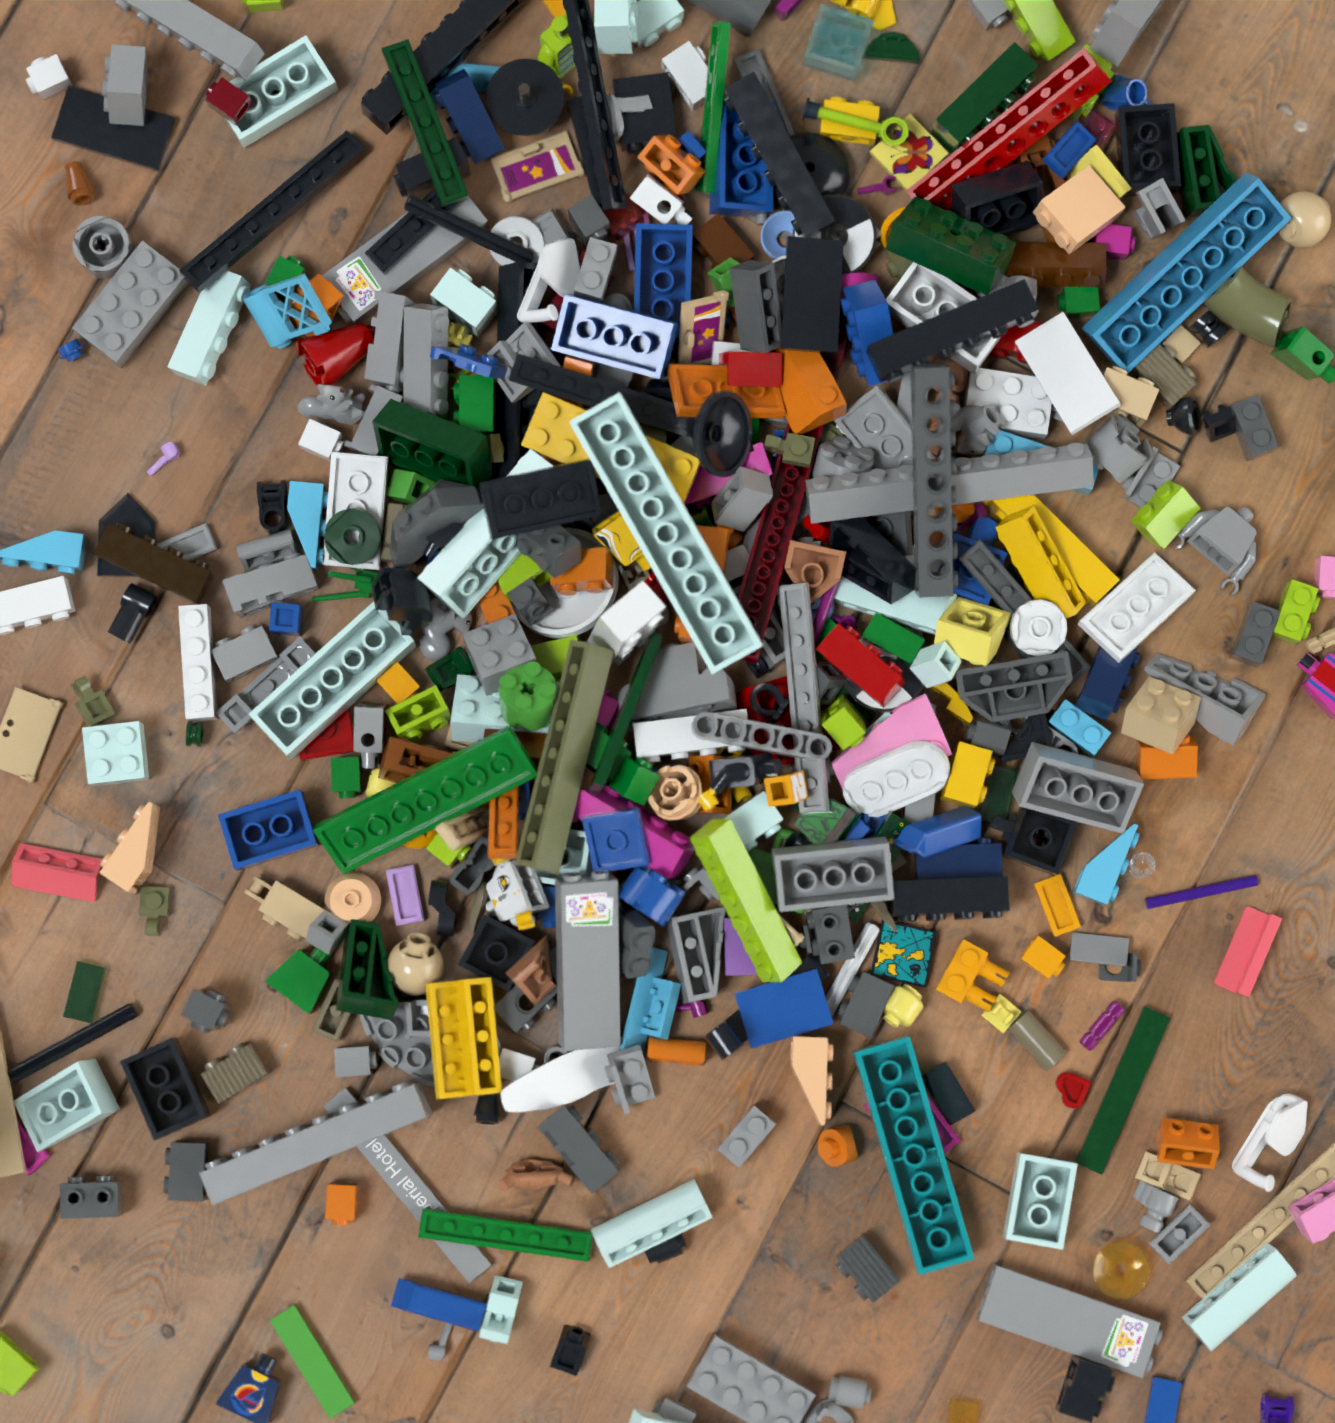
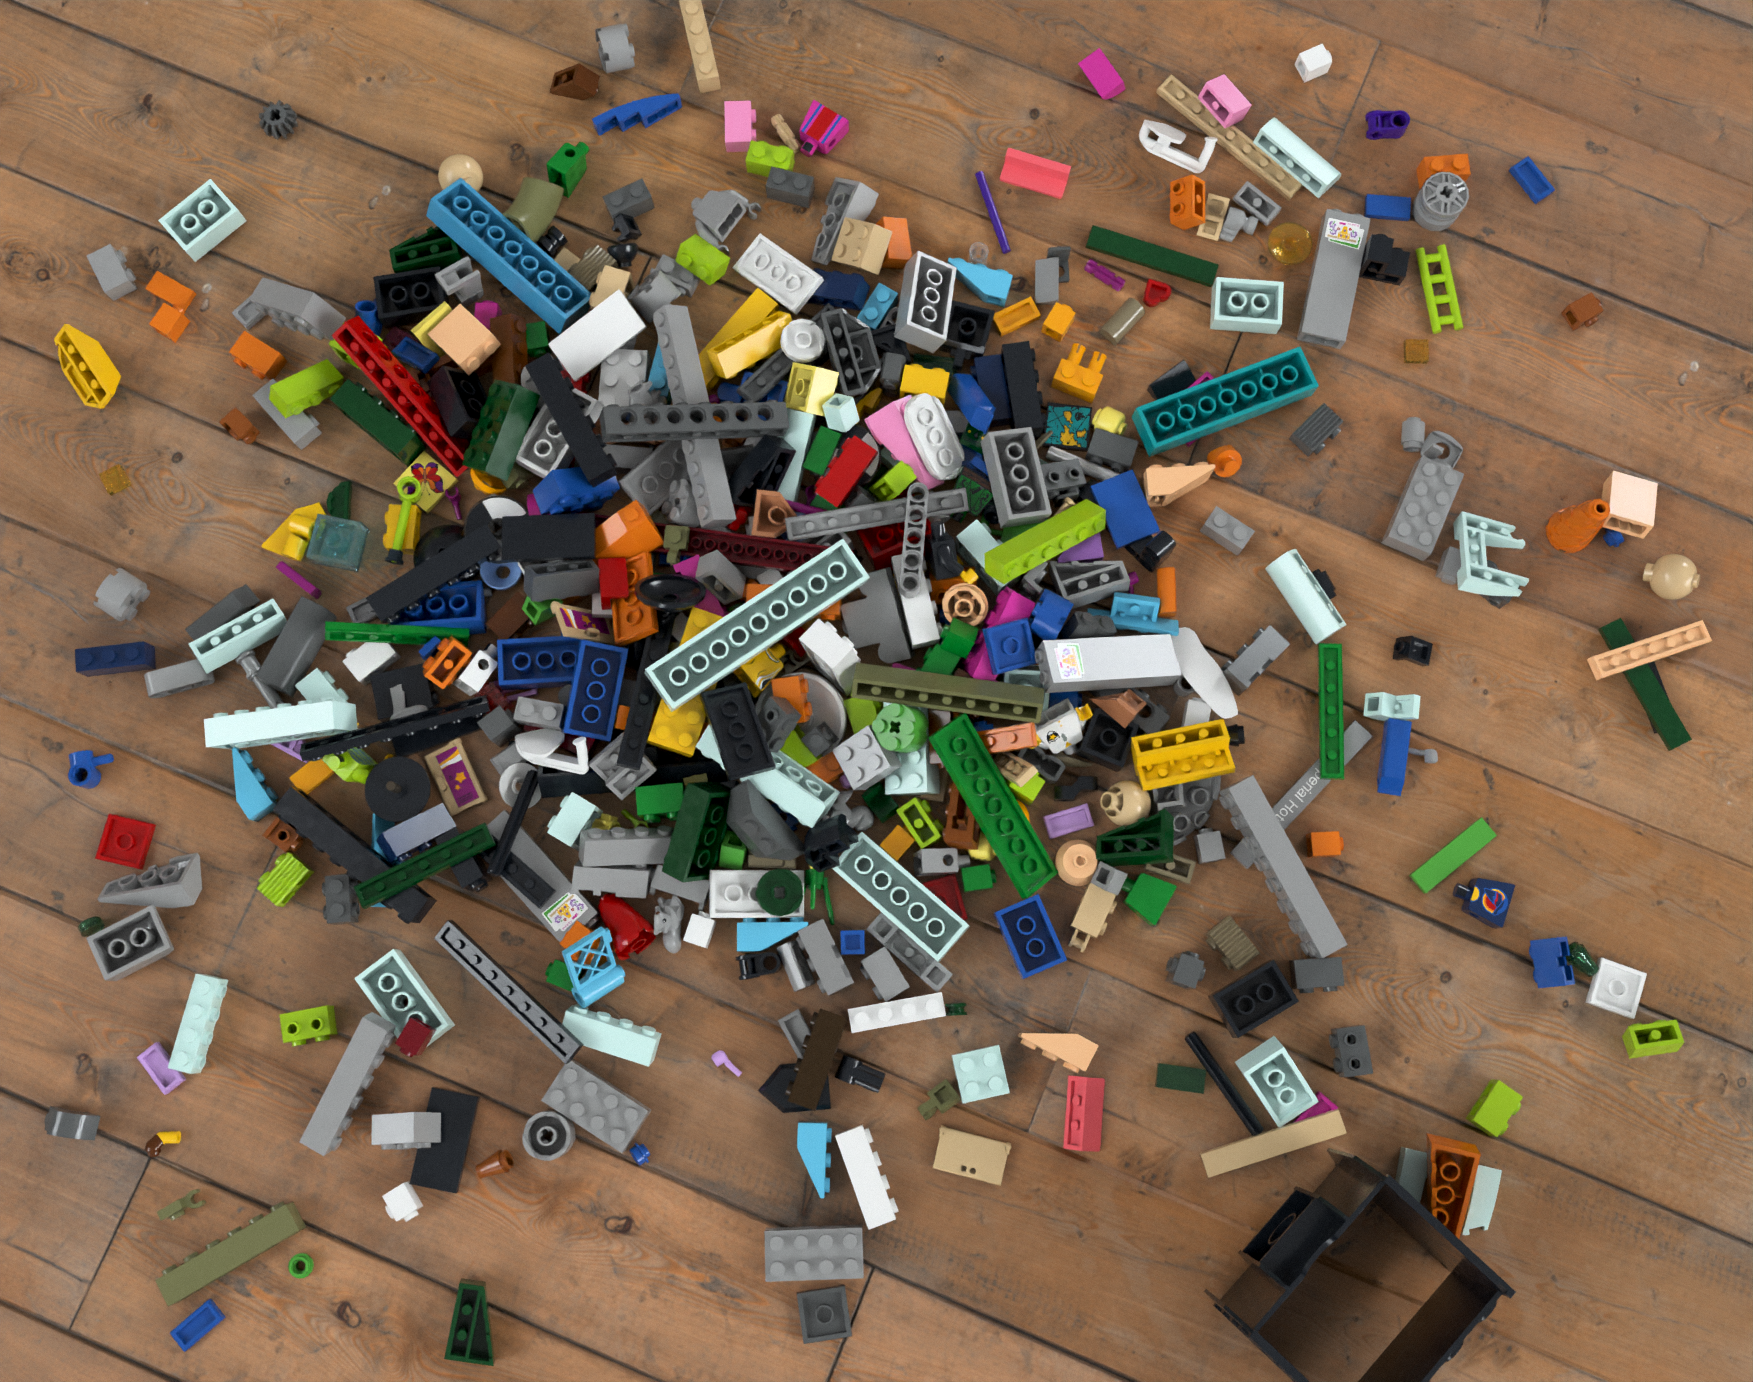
camera: 90 degrees left, 5 degrees down
(153, 904) = (1100, 1027): olive plate -> none
(398, 24) = (340, 900): none -> dark grey brick
(440, 538) = (777, 812): black bar -> none
(466, 358) = (623, 810): blue wing -> none
(534, 1174) = (1279, 692): nougat piece -> none
(625, 713) = (909, 650): dark green tile -> none
(630, 1076) = (1193, 624): light grey bracket -> none
(782, 703) = (883, 531): black piece -> none
(786, 788) = (954, 518): light orange brick -> none
(1001, 1013) = (1107, 347): light yellow tile -> none

